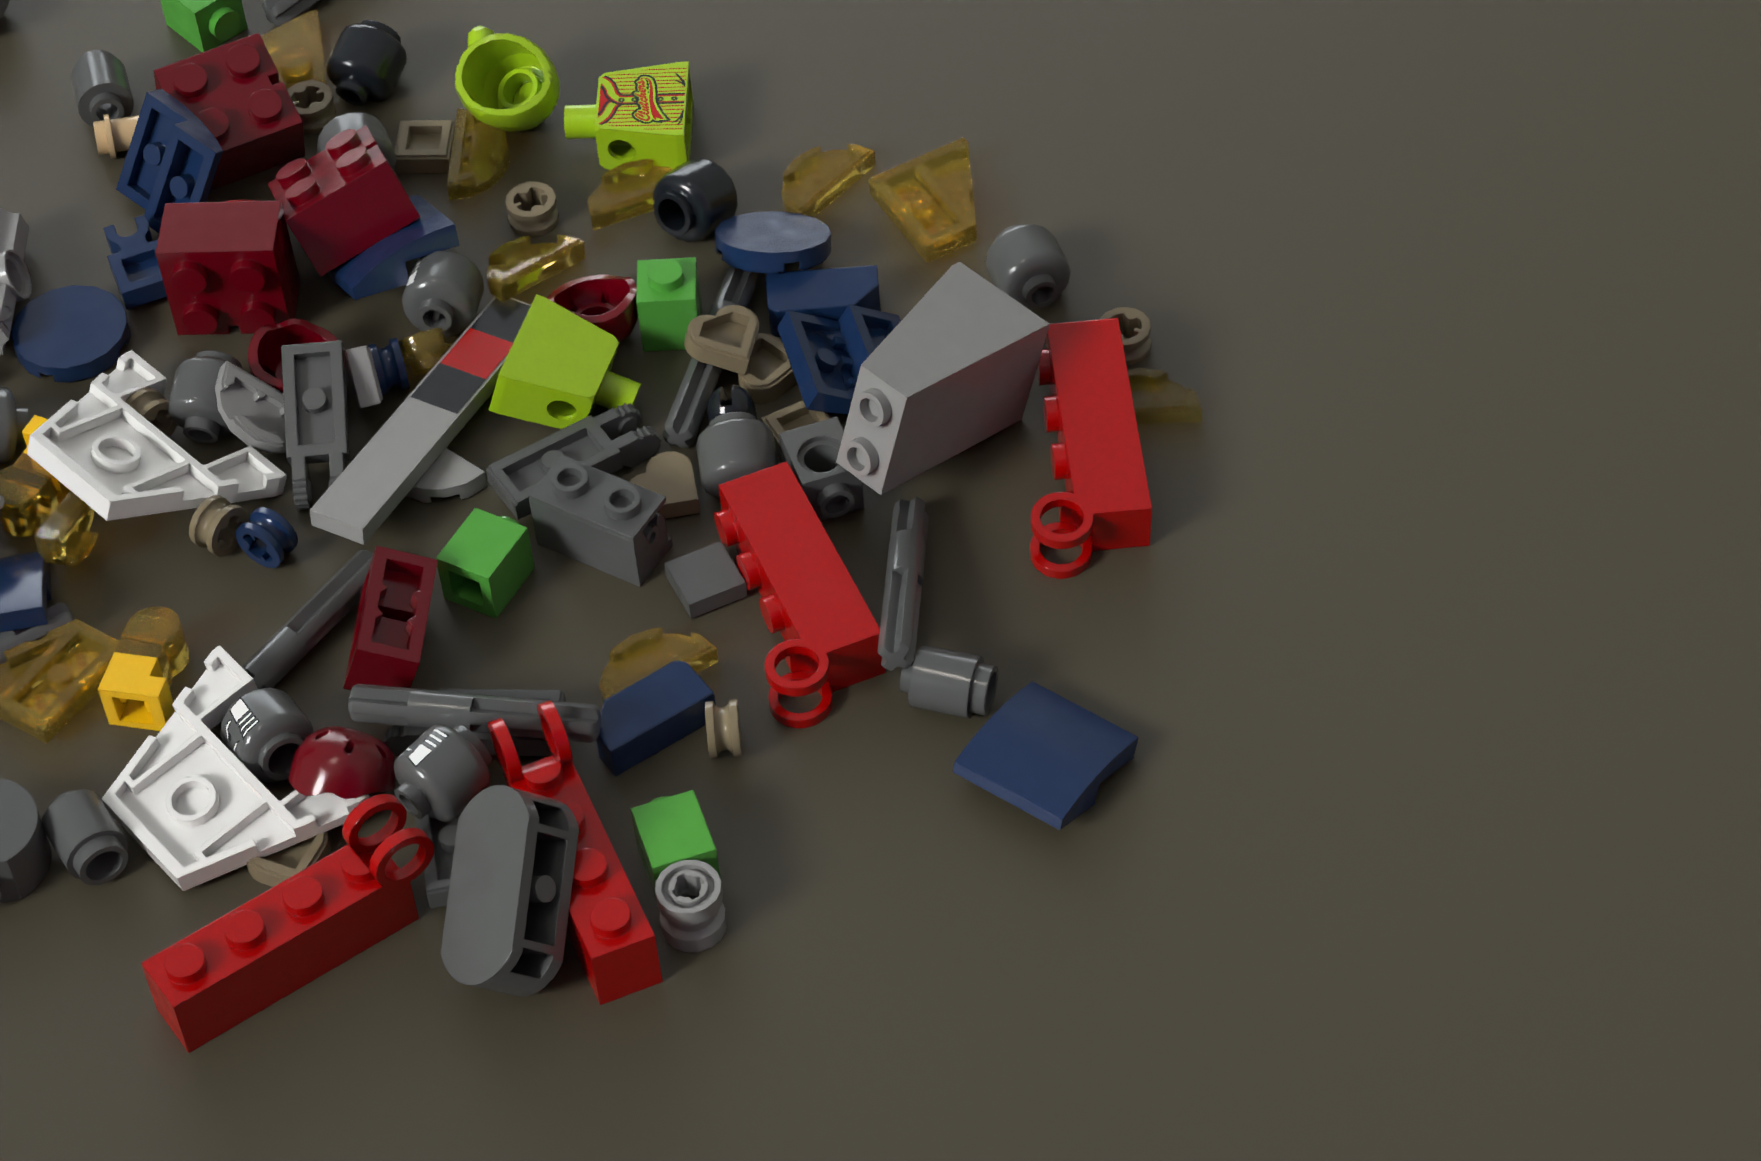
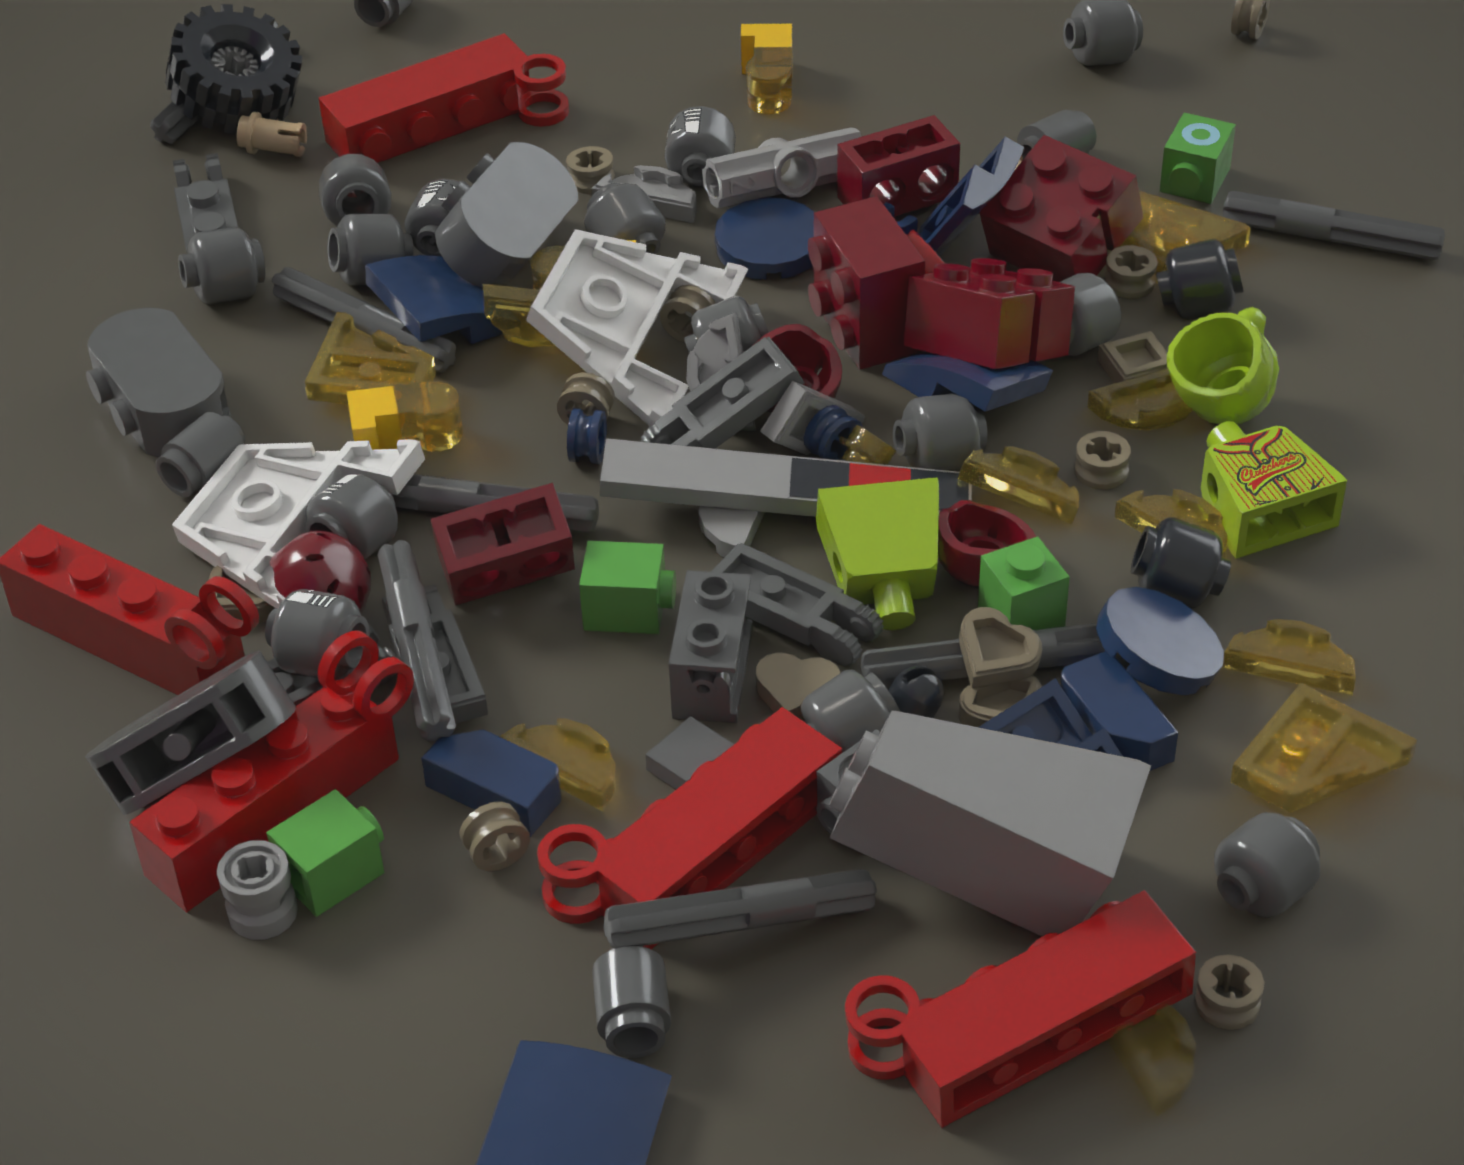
camera: 65 degrees right, 5 degrees down
(73, 201) = (901, 165): none -> dark red brick

